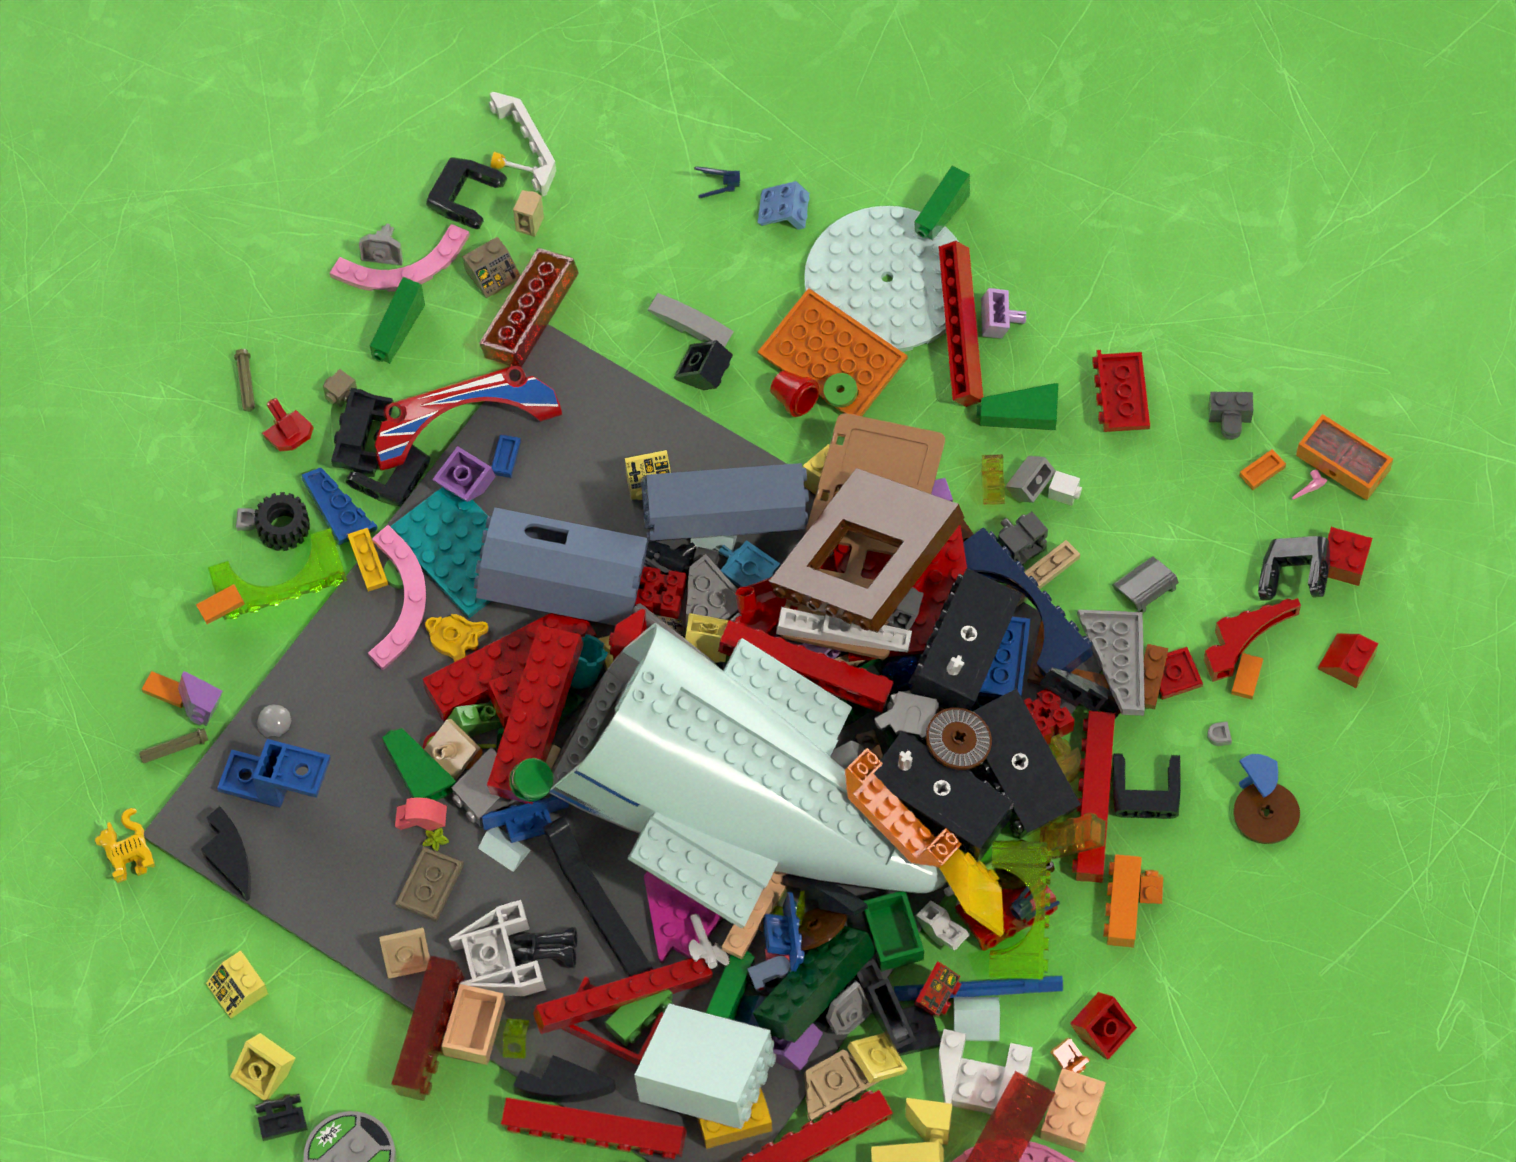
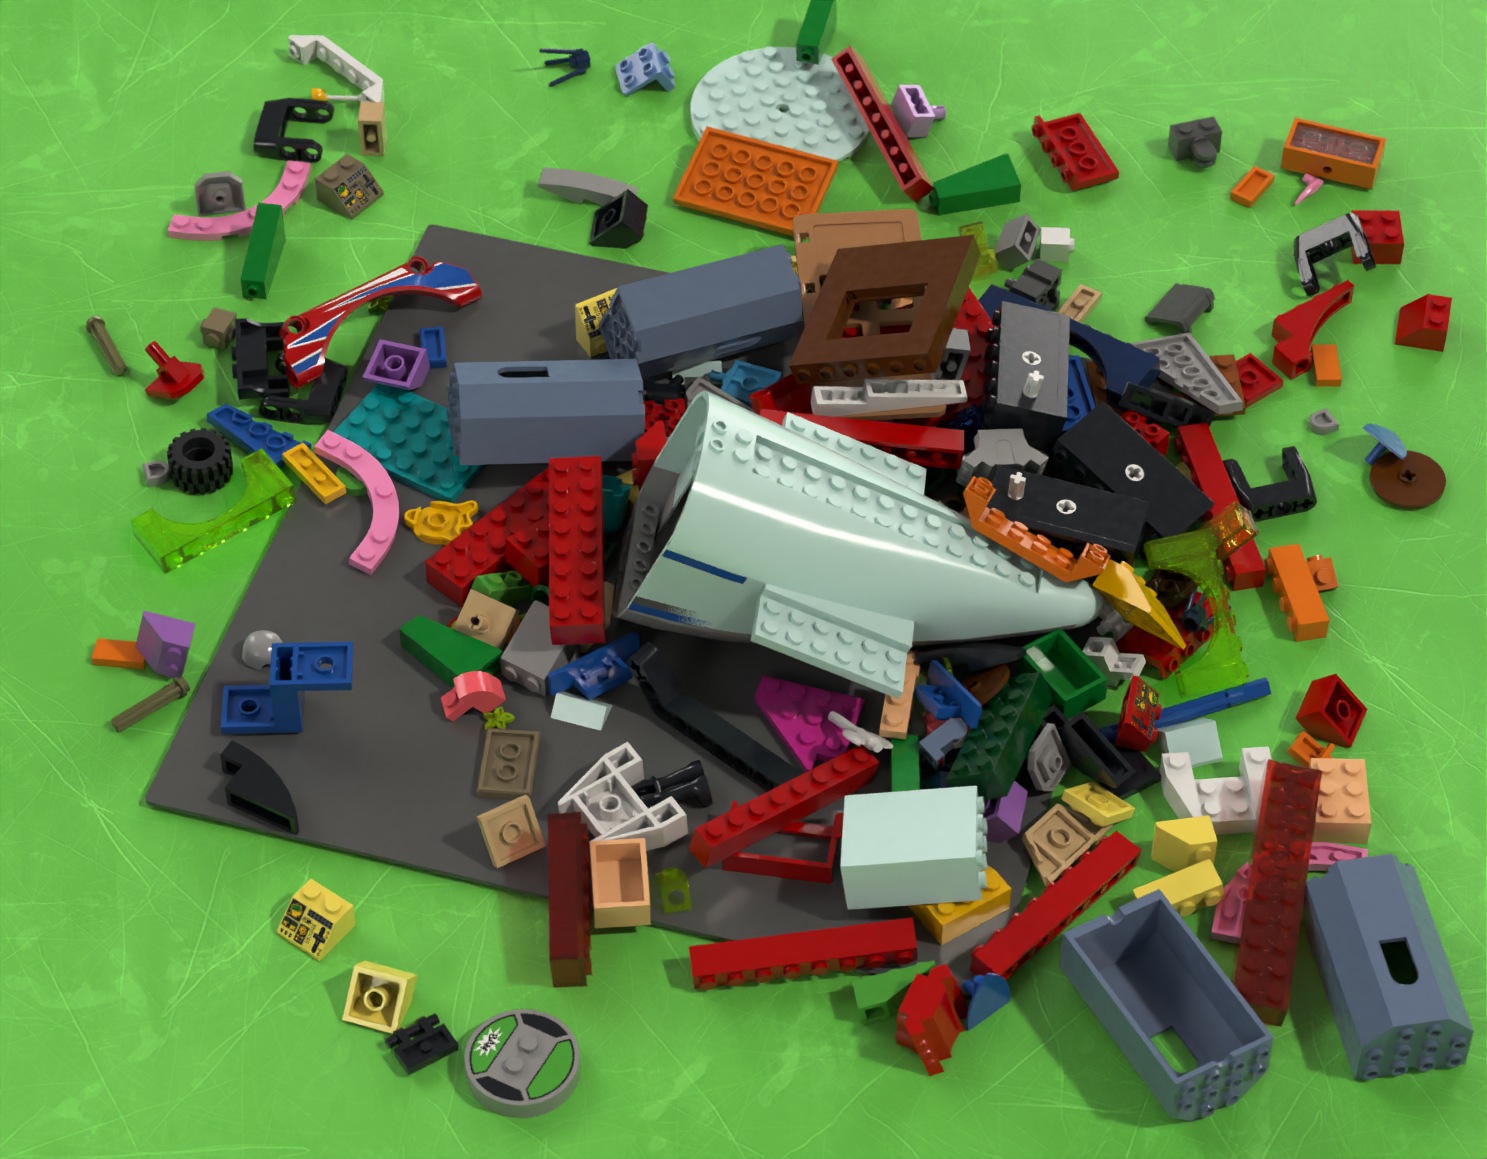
camera: 20 degrees left, 15 degrees down
(127, 850) = (133, 818): yellow animal -> none
(220, 604) = (159, 549): orange tile -> none
(529, 308) = (406, 208): clear red brick -> none
(531, 779) = (602, 602): green head -> none
(563, 1083) = (751, 916): black slope -> none
(635, 1016) = (805, 828): bright green slope -> none
(795, 392) = (730, 221): red piece -> none
(838, 381) = (776, 200): bright green piece -> none
(952, 752) = (1063, 458): piece -> none

